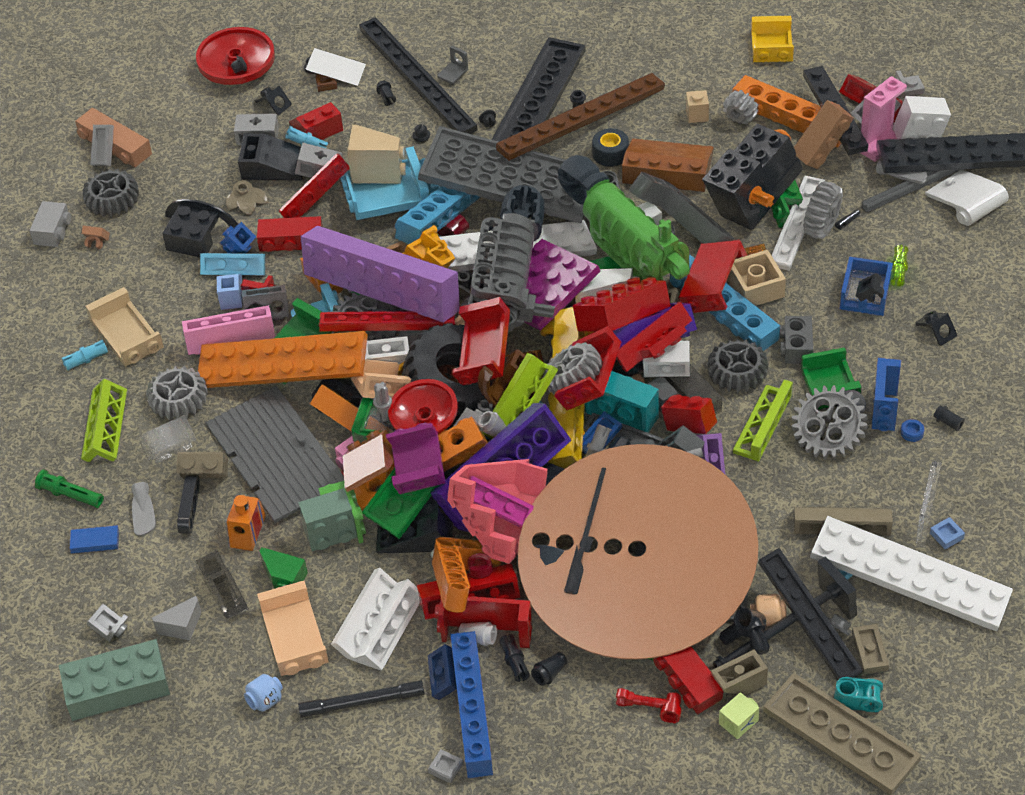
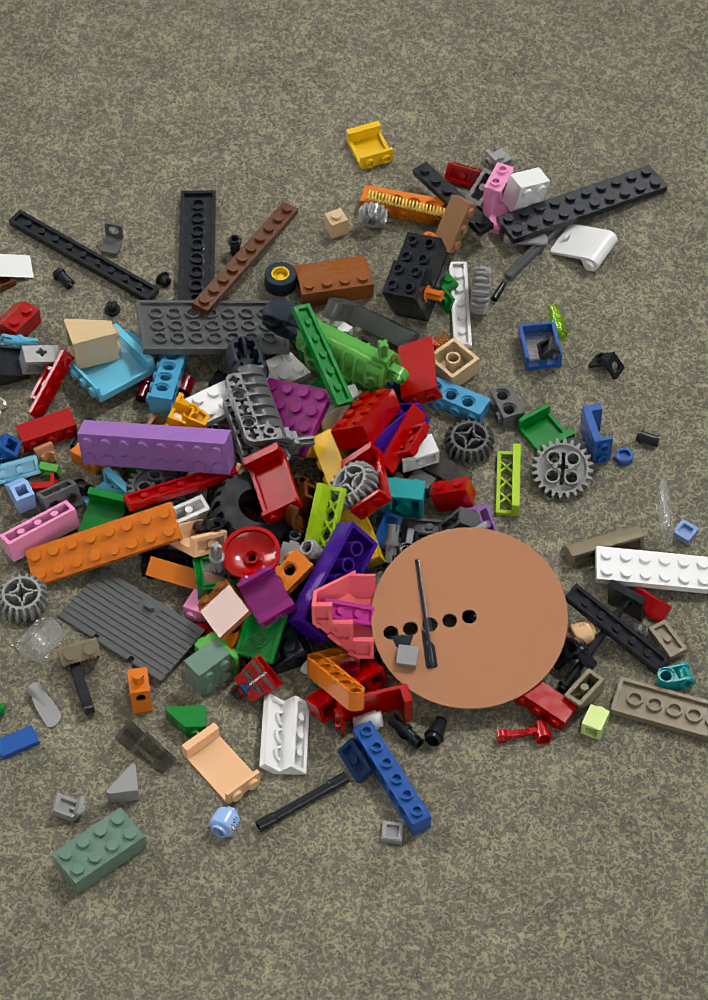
camera: 25 degrees left, 5 degrees up
(271, 270) = (47, 468): none -> bright green plate
(276, 256) = (45, 453): none -> nougat tile
(293, 295) = (83, 486): none -> black pin
(372, 547) = (255, 680): none -> red torso
(396, 367) = (207, 525): none -> black pin
(546, 571) = (407, 656): none -> light grey tile
(600, 225) = (322, 355): none -> green plate
(809, 117) = (405, 206): none -> light yellow piece
(868, 604) = (655, 607): none -> red tile

